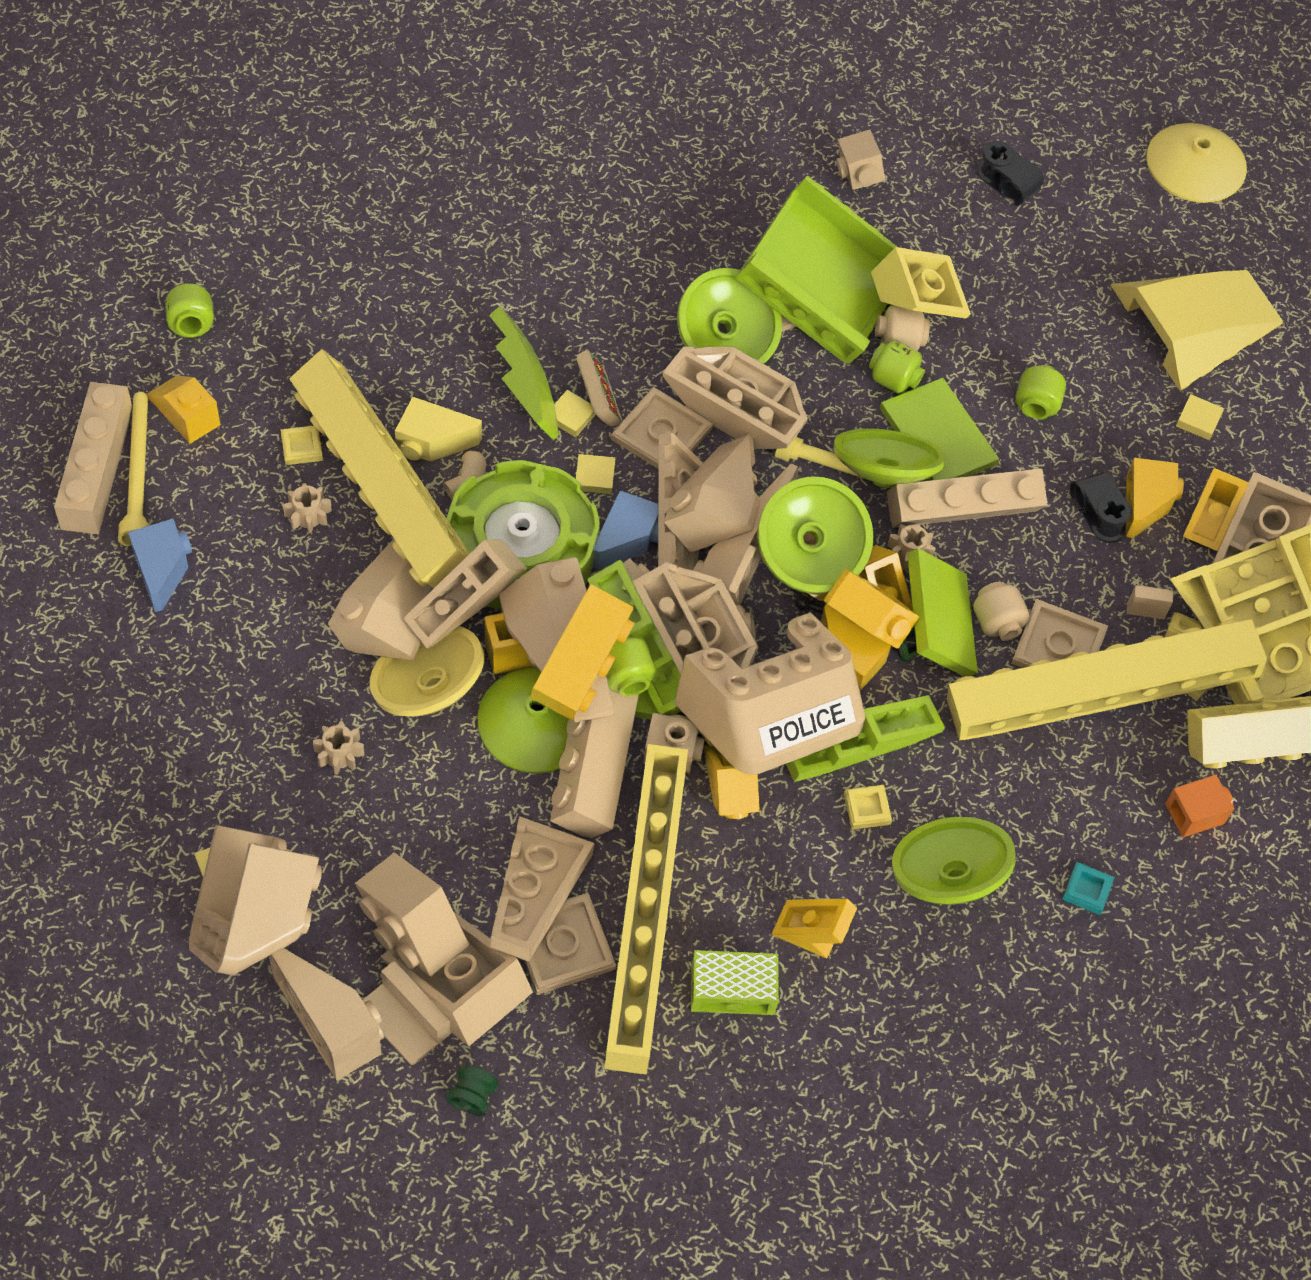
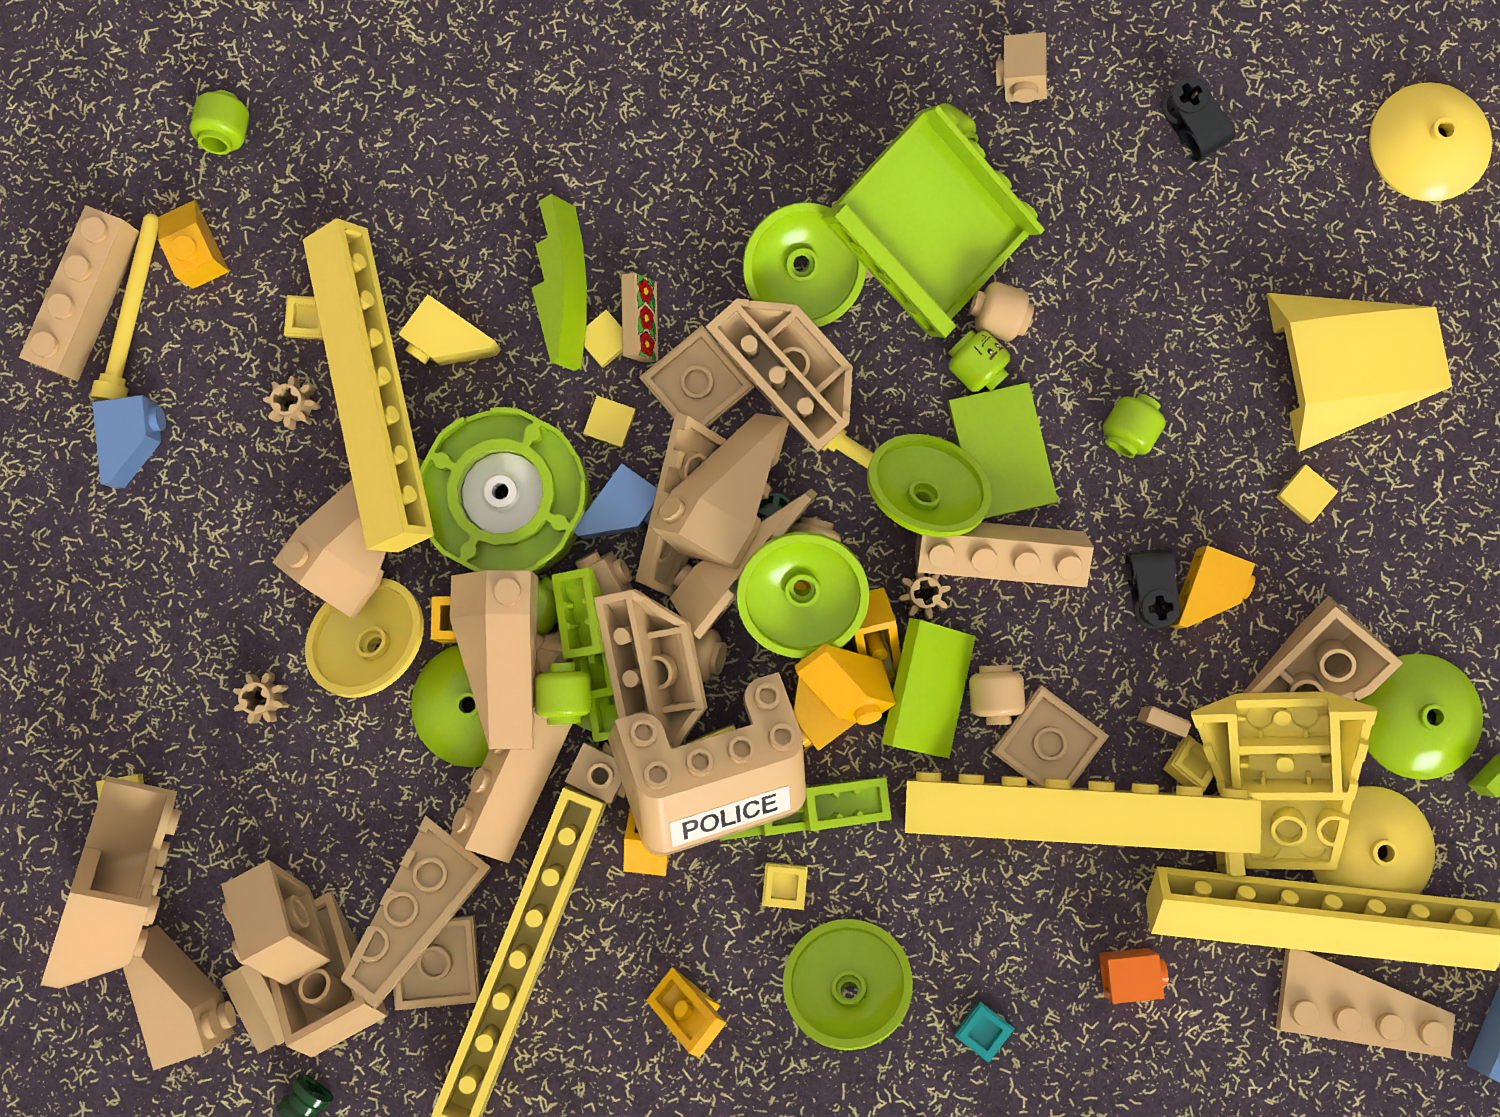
camera: 25 degrees right, 25 degrees up
(465, 591) = (415, 569): tan slope -> none
(473, 464) = (476, 395): tan arm -> none
(583, 653) = (505, 694): yellow brick -> none
(734, 982) = (587, 1057): lime panel -> none
(920, 283) = (1036, 268): light yellow slope -> none
(1215, 509) = (1277, 628): yellow slope -> none

